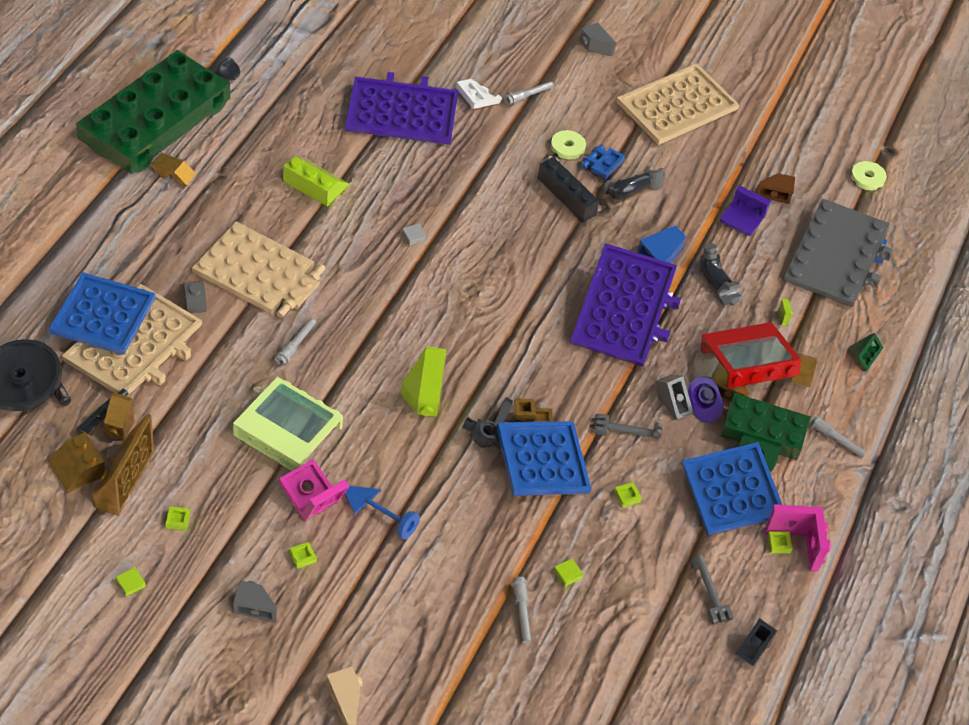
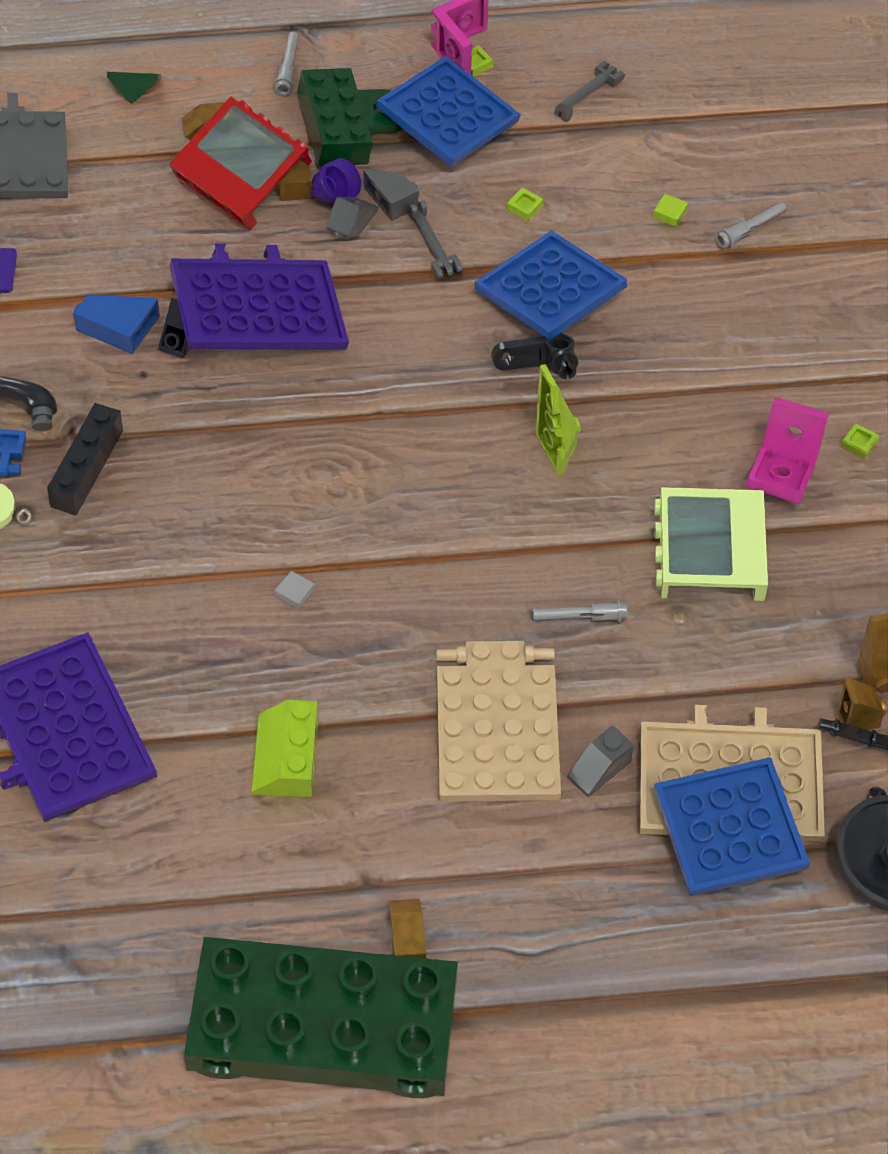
camera: 115 degrees left, 5 degrees up
(227, 69) = (150, 996): black piece -> none
(360, 496) = (740, 430): blue piece -> none
(526, 411) = (492, 325): pearl gold slope -> none
(681, 424) = (391, 191): none -> dark grey slope
(714, 272) = (117, 256): piece -> none
(757, 642) = (624, 23): black slope -> none
(785, 312) = (132, 167): lime tile -> none

